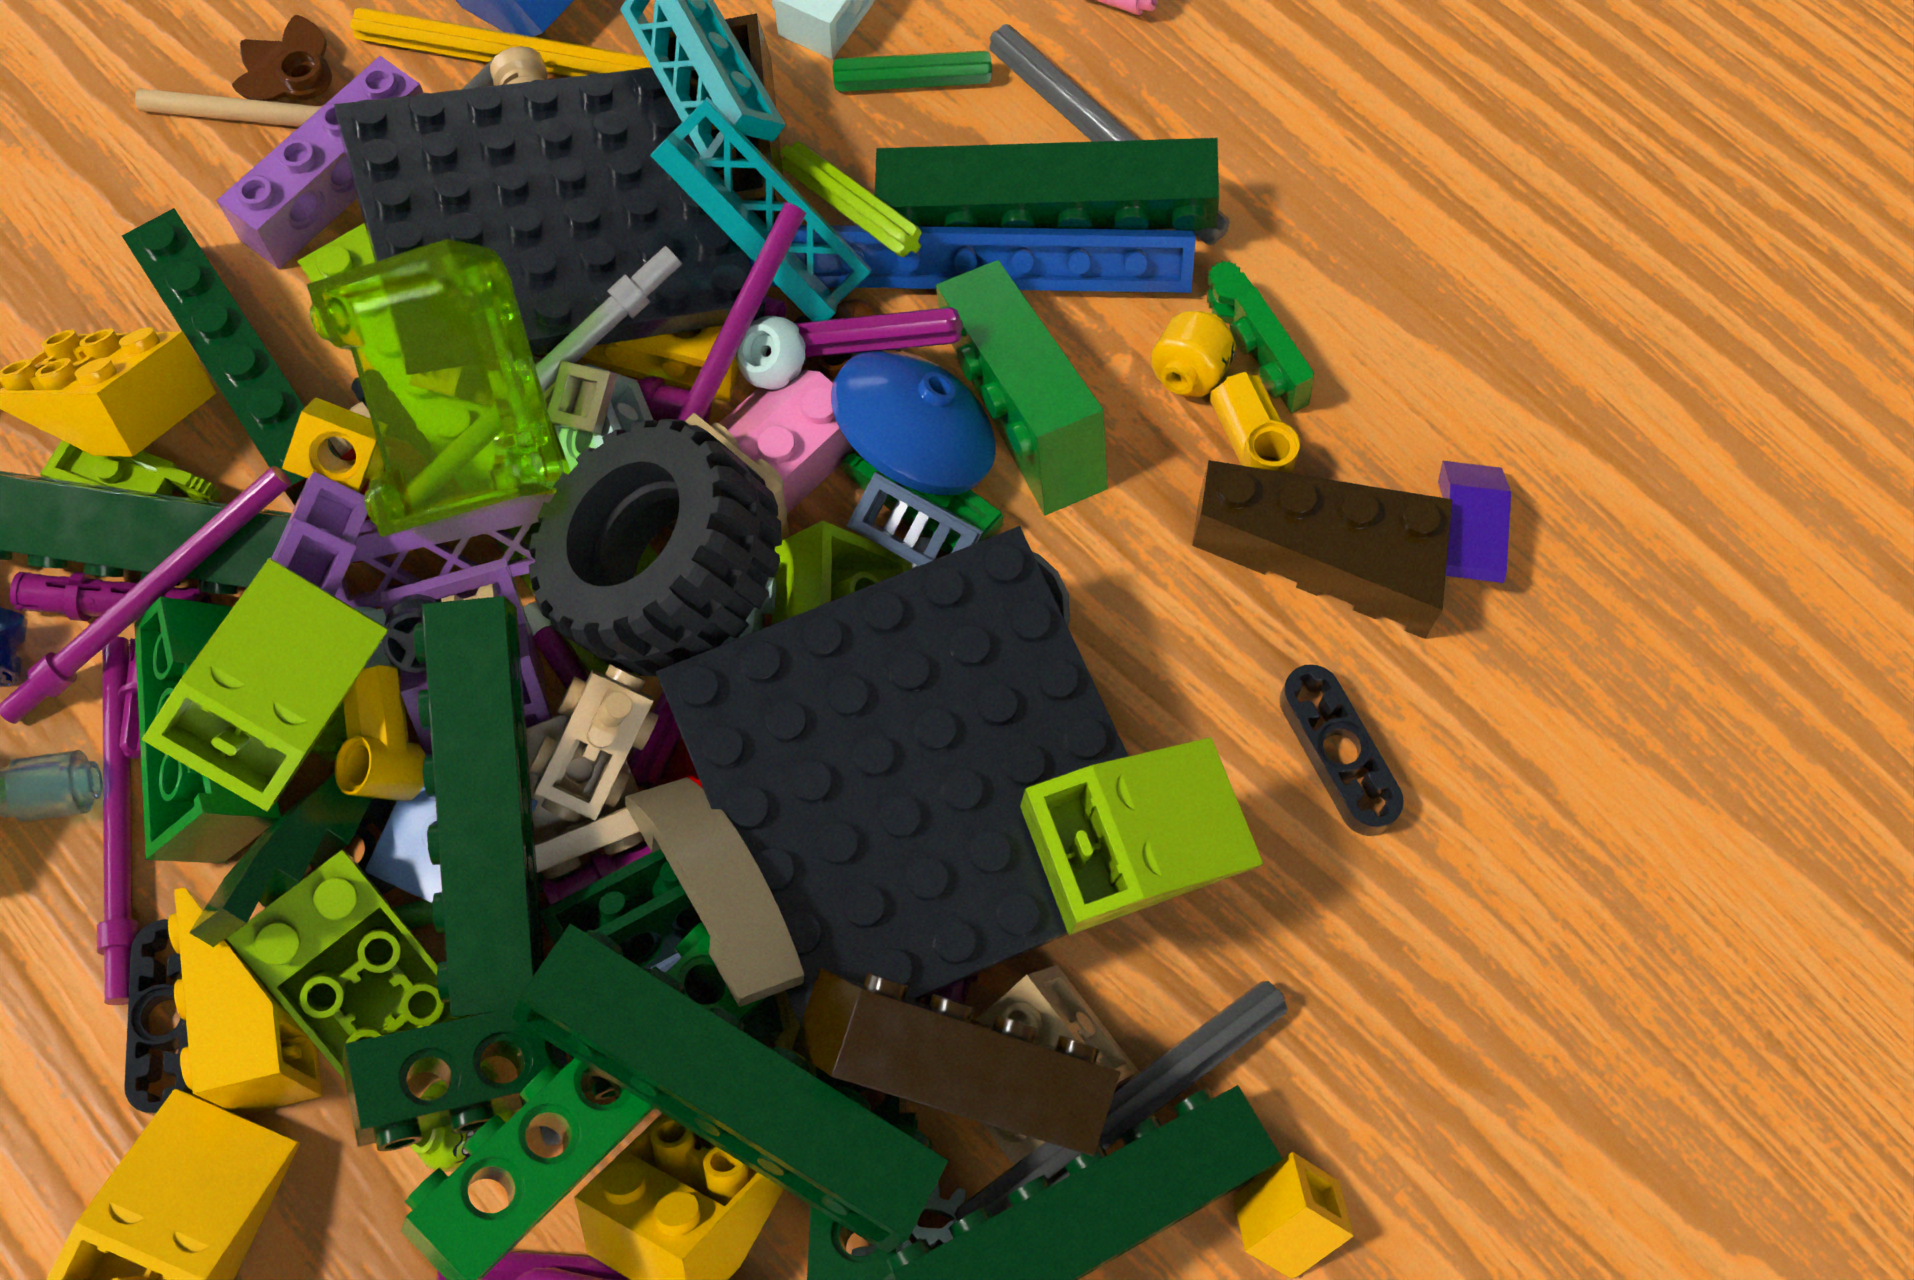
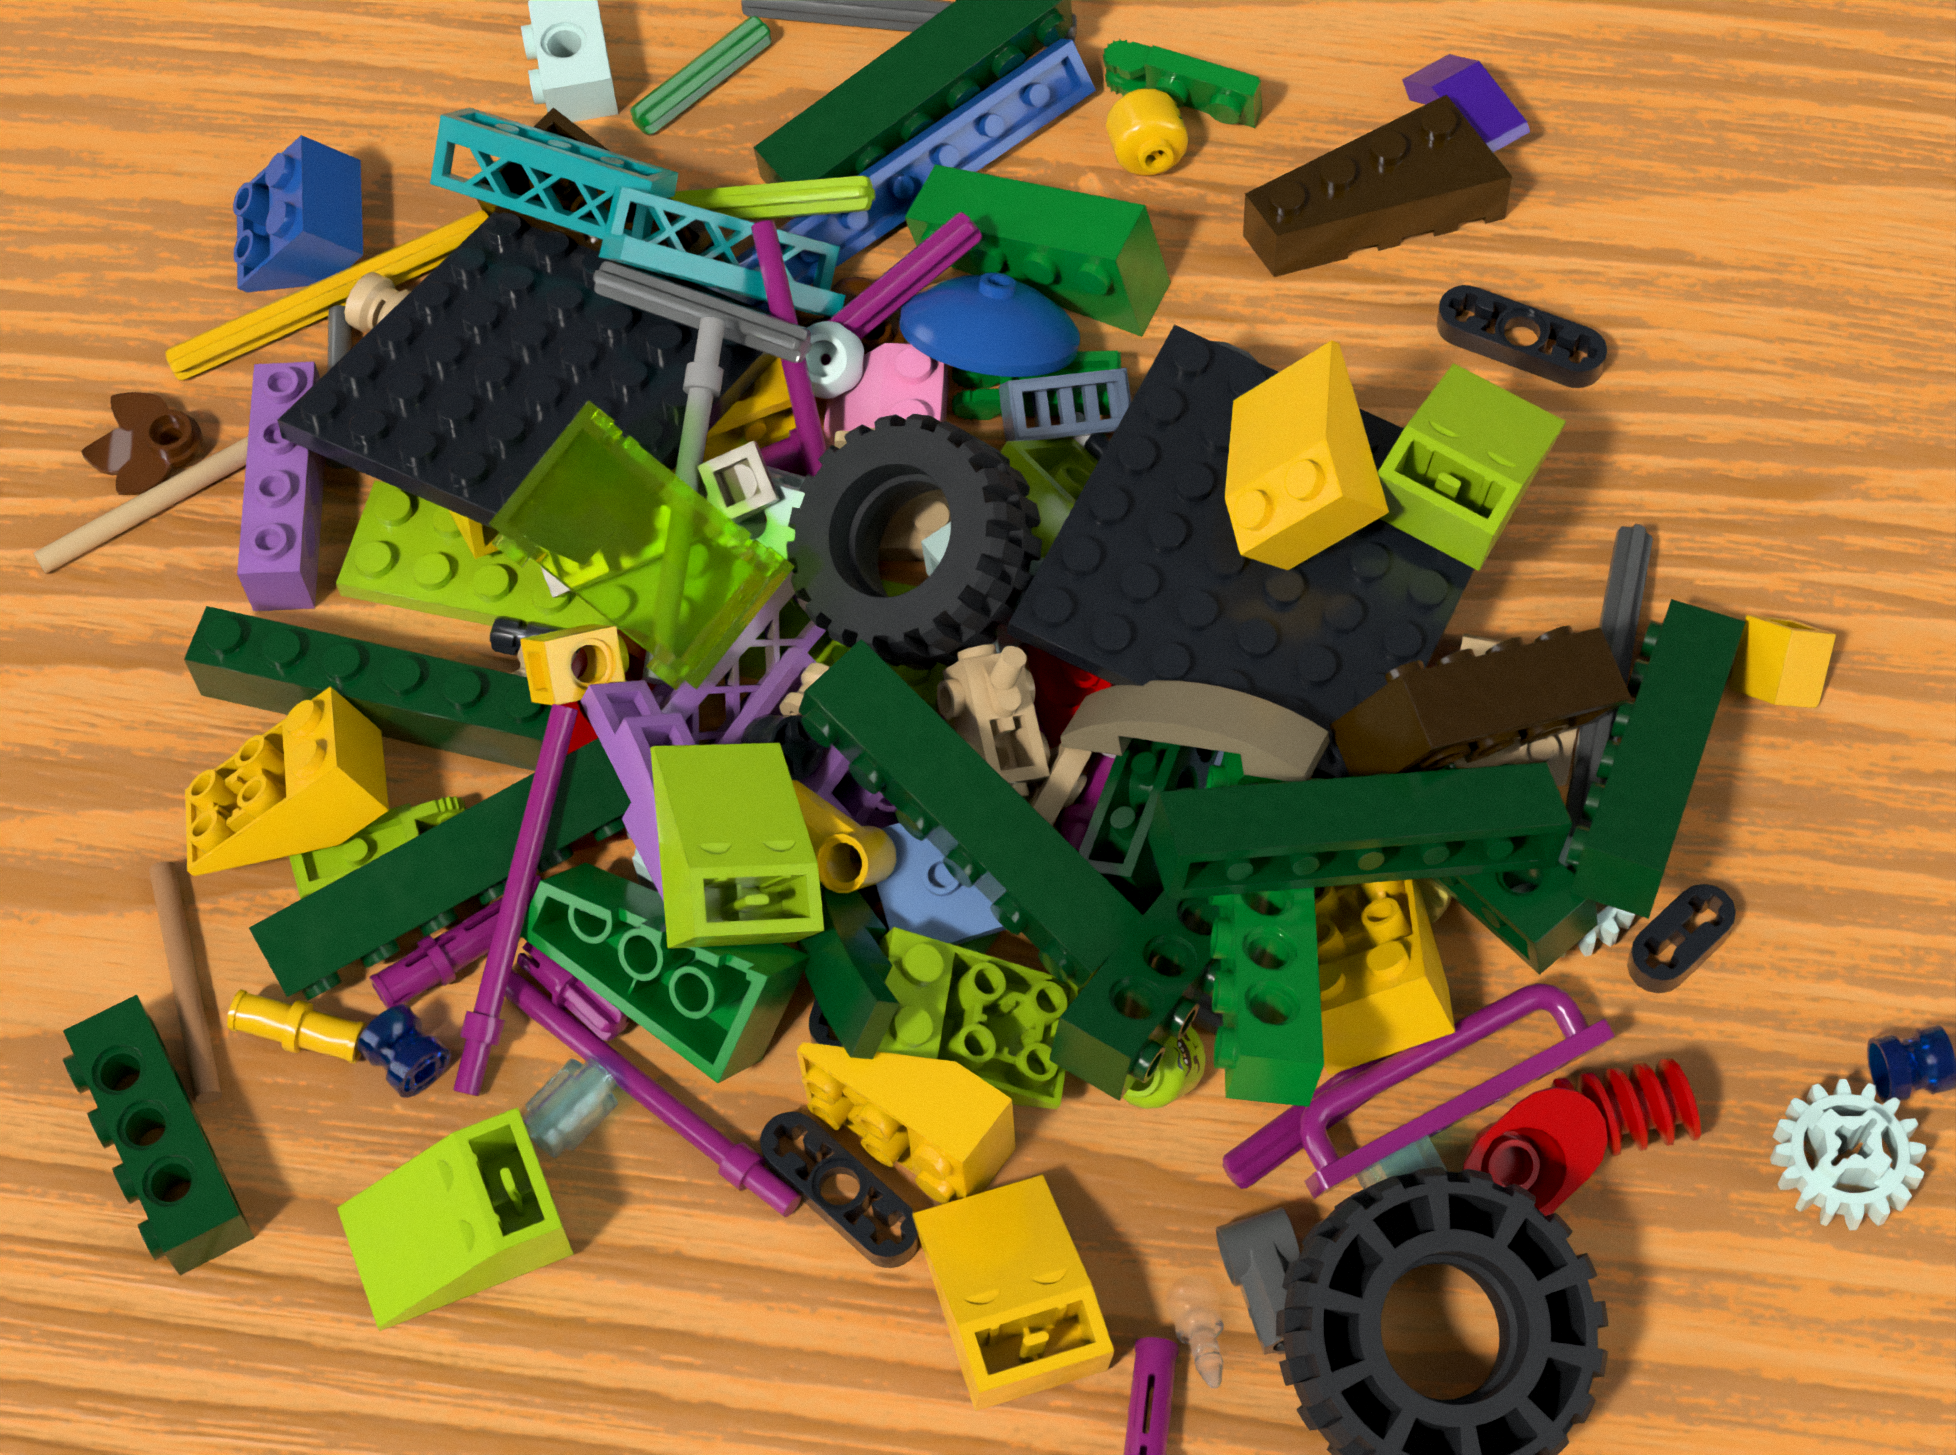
camera: 35 degrees left, 5 degrees down
(697, 252) = (689, 306): none -> dark grey axle
(981, 725) = (1300, 463): none -> yellow slope
(1254, 424) = (1244, 152): yellow piece -> none

